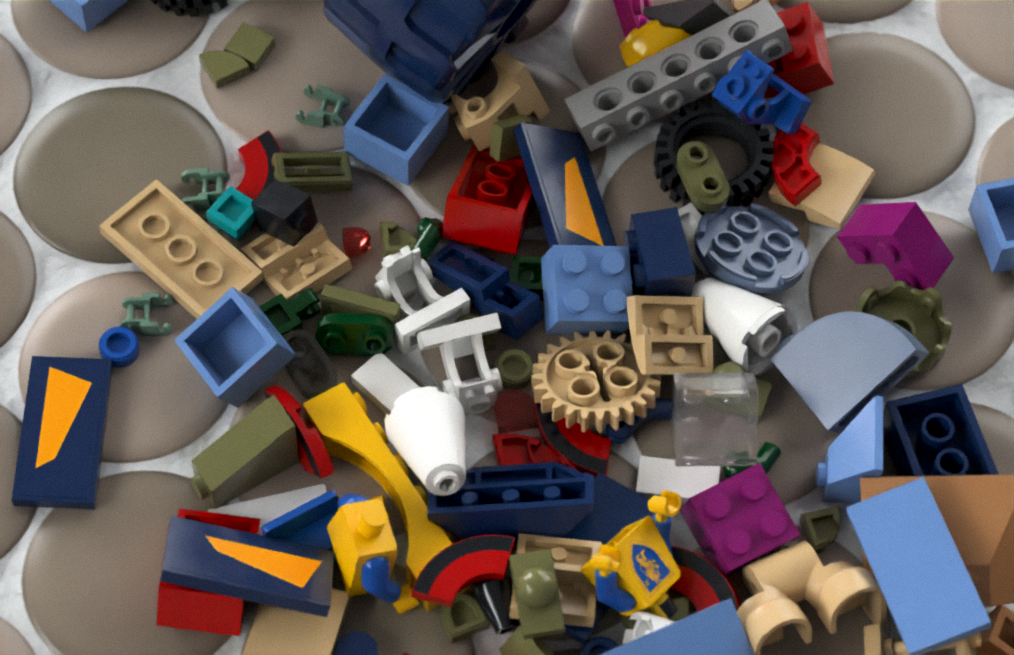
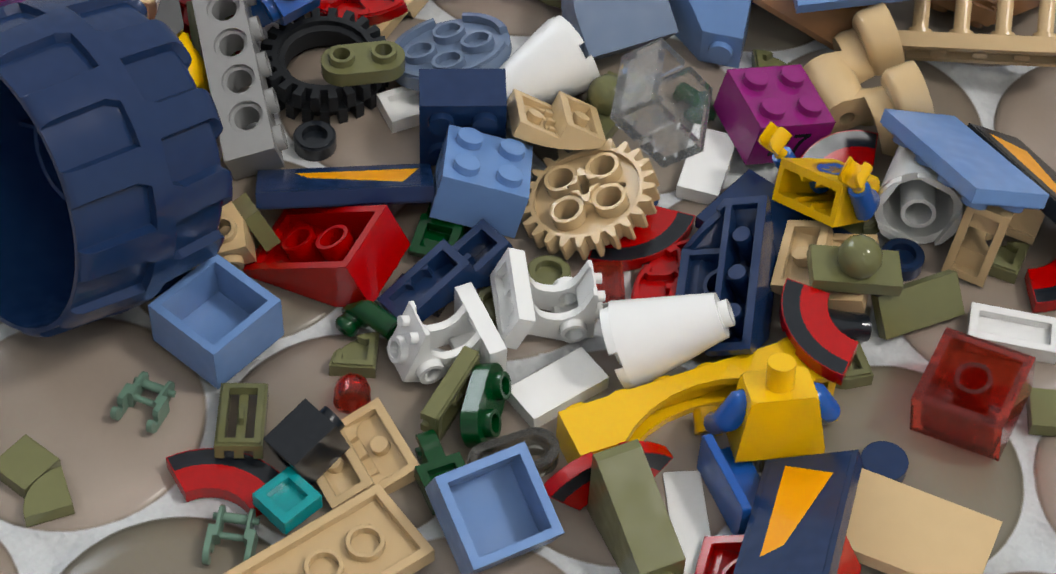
camera: 80 degrees left, 10 degrees down
(629, 169) = (314, 140): none -> black tile

